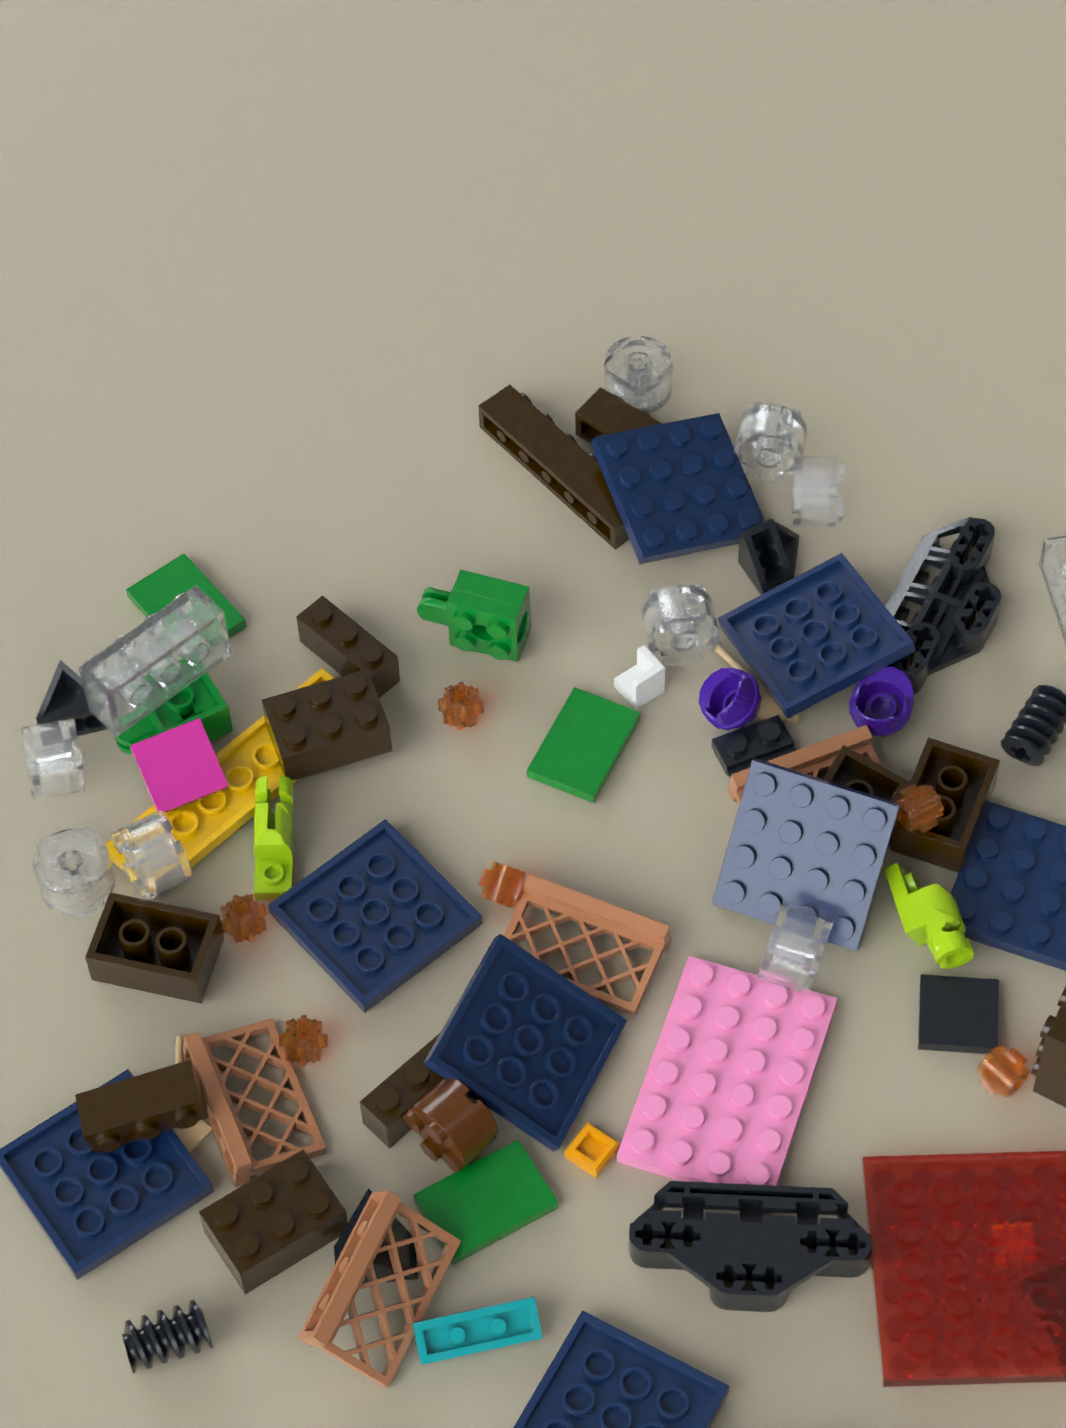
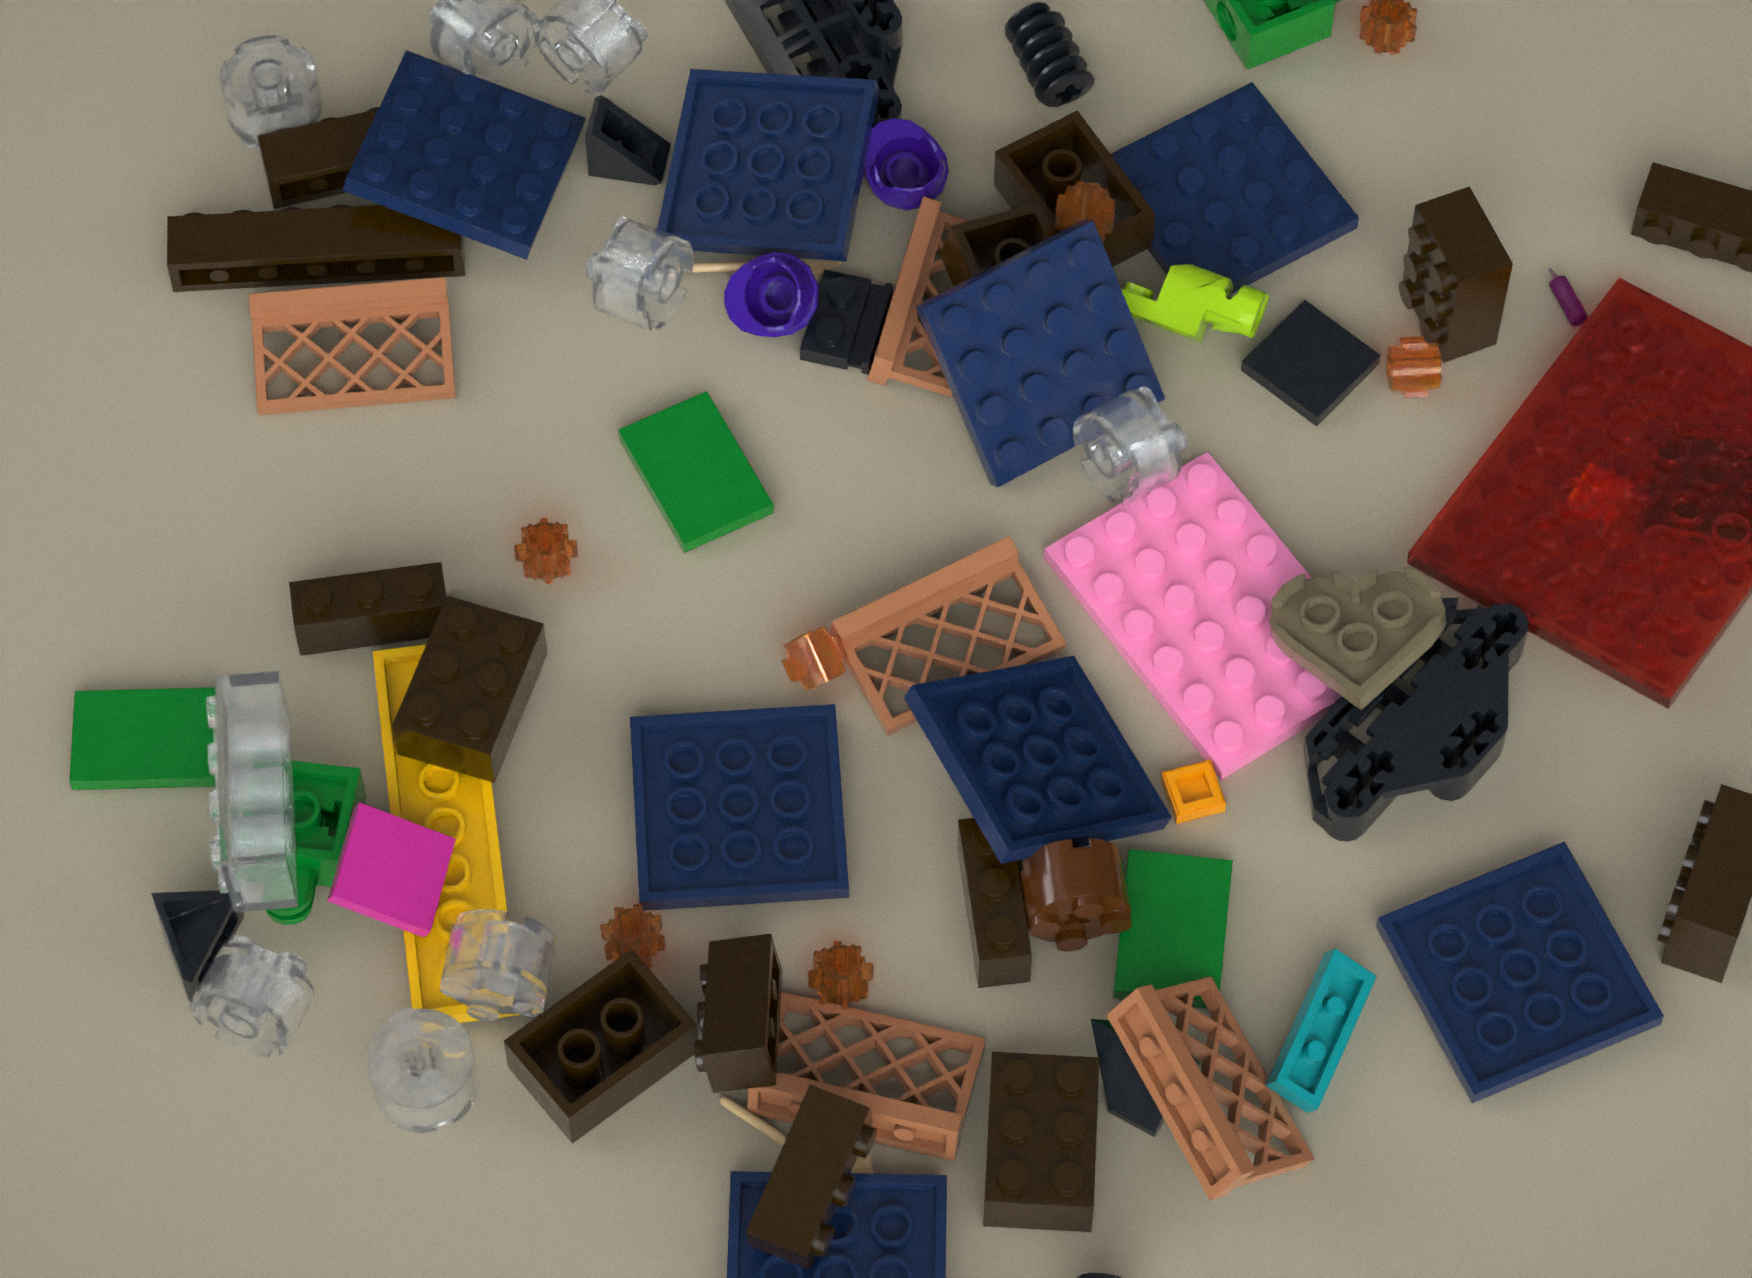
camera: 55 degrees left, 5 degrees up
(227, 1001) = (740, 1013): none -> dark brown brick
(273, 840) = (560, 842): lime plate -> none
(481, 614) = (456, 448): green brick -> none
(539, 512) = (359, 307): none -> nougat fence
(642, 681) = (666, 360): white panel -> none
(769, 1159) = (1357, 630): none -> dark tan plate

